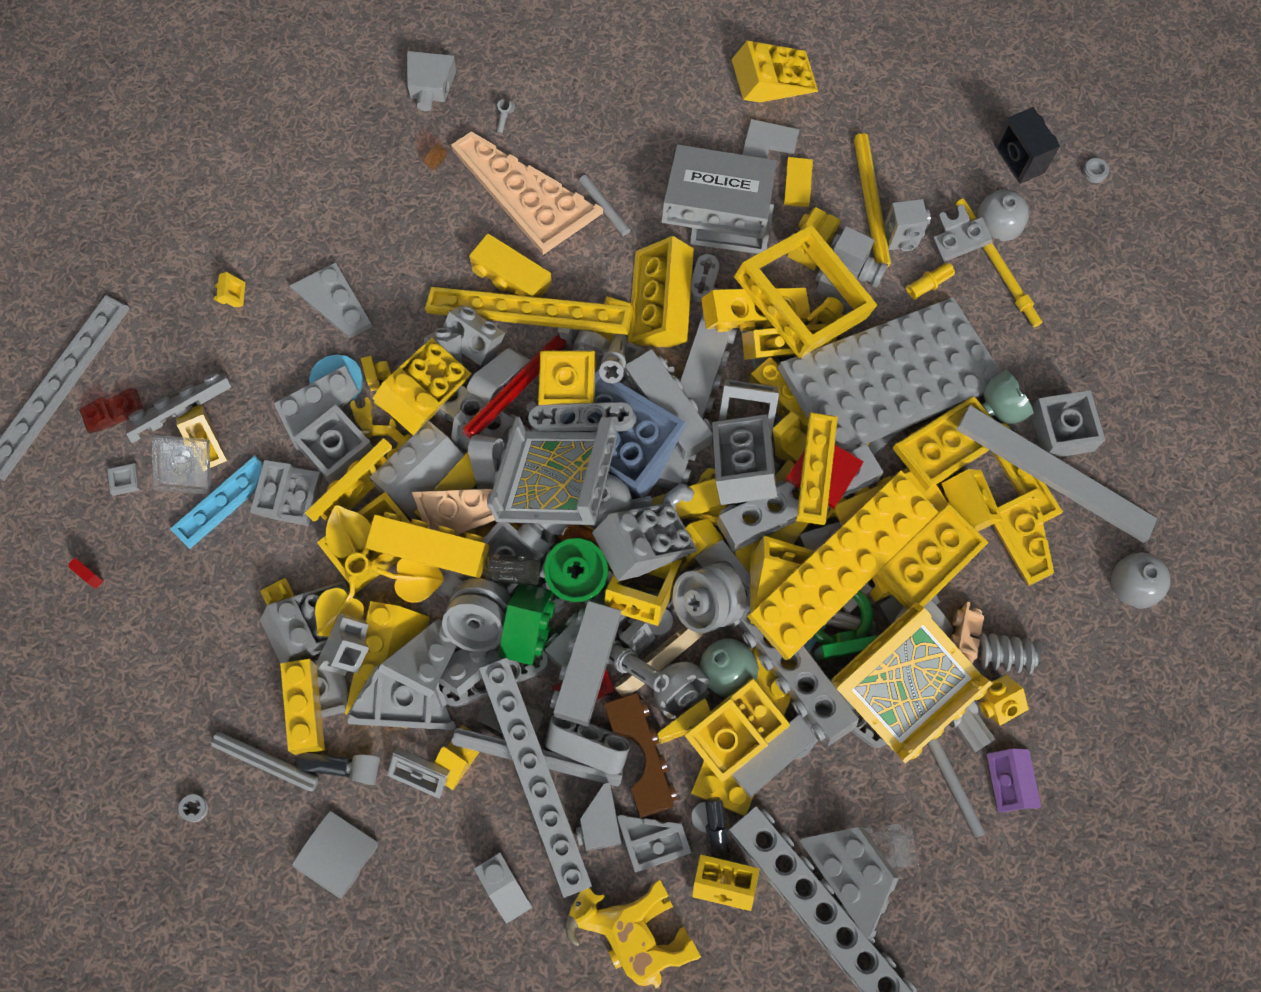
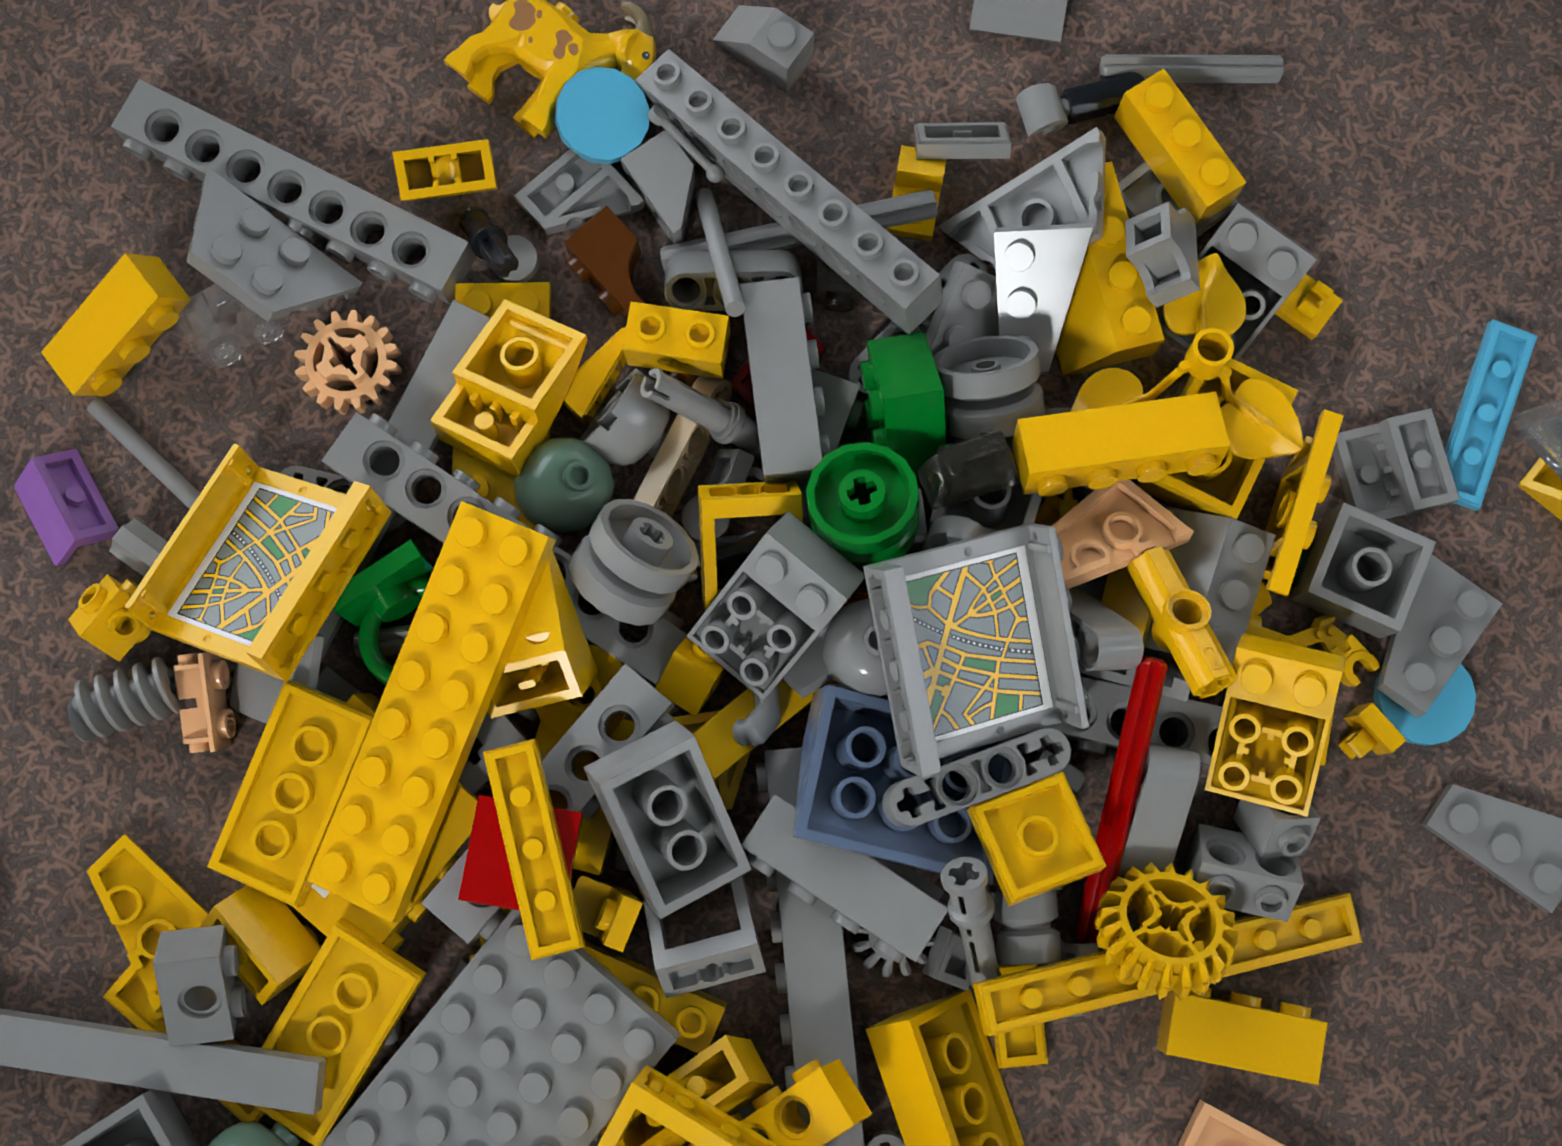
camera: 160 degrees right, 10 degrees up
(443, 429) = (1190, 642): none -> yellow piece
(524, 308) = (1163, 947): none -> yellow gear
(587, 856) = (660, 117): none -> light grey hinge
(588, 756) = (719, 253): none -> light grey bar
(620, 875) = (602, 115): none -> medium azure tile
(635, 709) = (676, 340): none -> yellow brick
(821, 779) = (365, 348): none -> light nougat gear
(952, 864) = (116, 325): none -> yellow brick
(1008, 486) = (198, 985): none -> light grey brick

